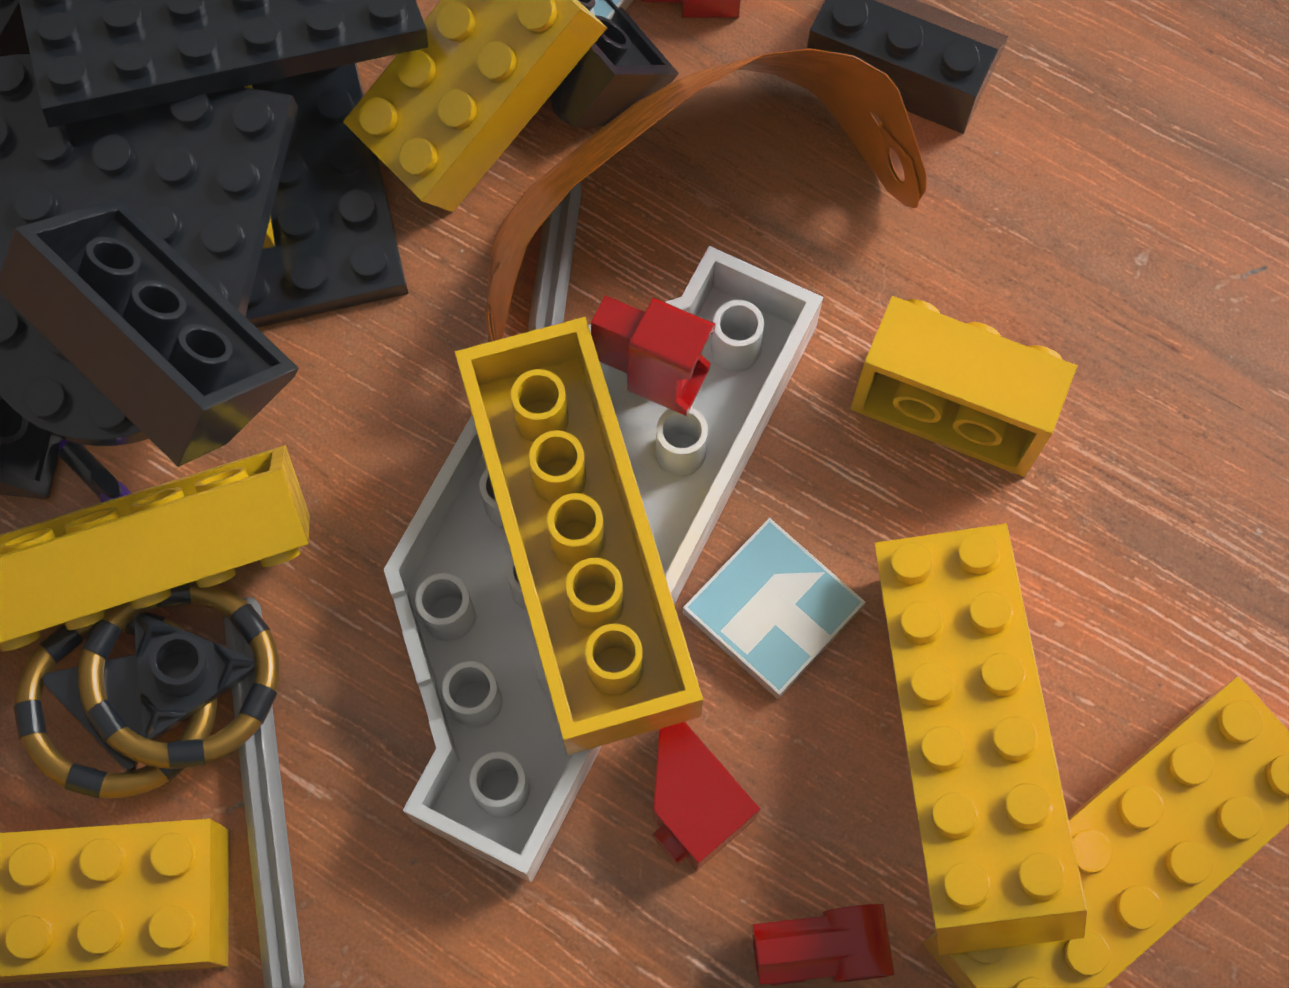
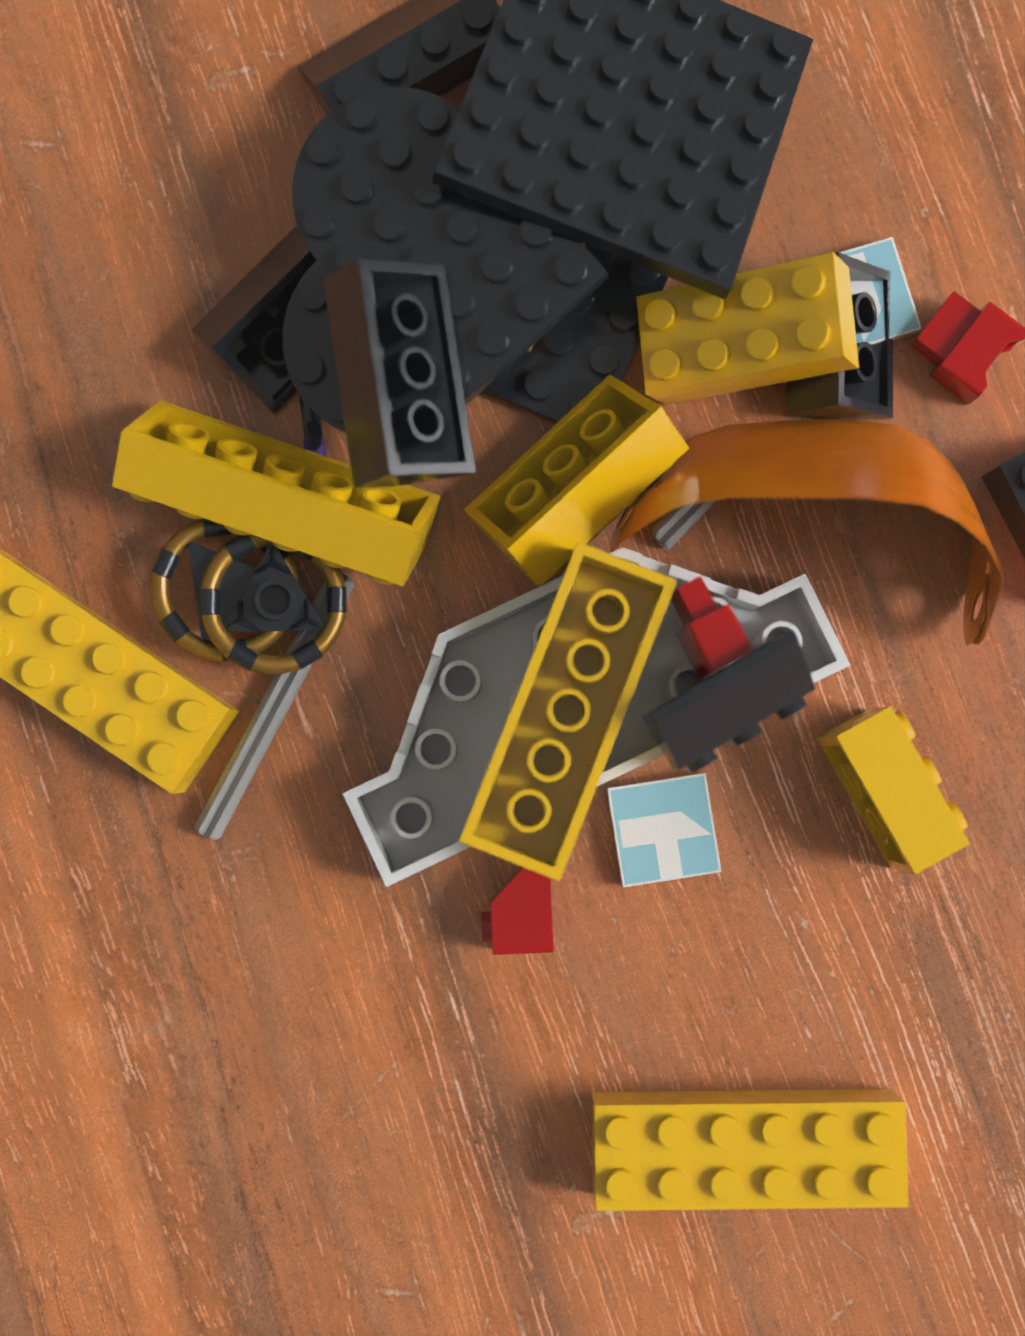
camera: 40 degrees right, 15 degrees up
(407, 315) = (577, 478): none -> yellow brick
(733, 402) = (732, 703): none -> black slope
(840, 945) = (541, 1060): red piece -> none
(978, 743) = (714, 1014): yellow brick -> none

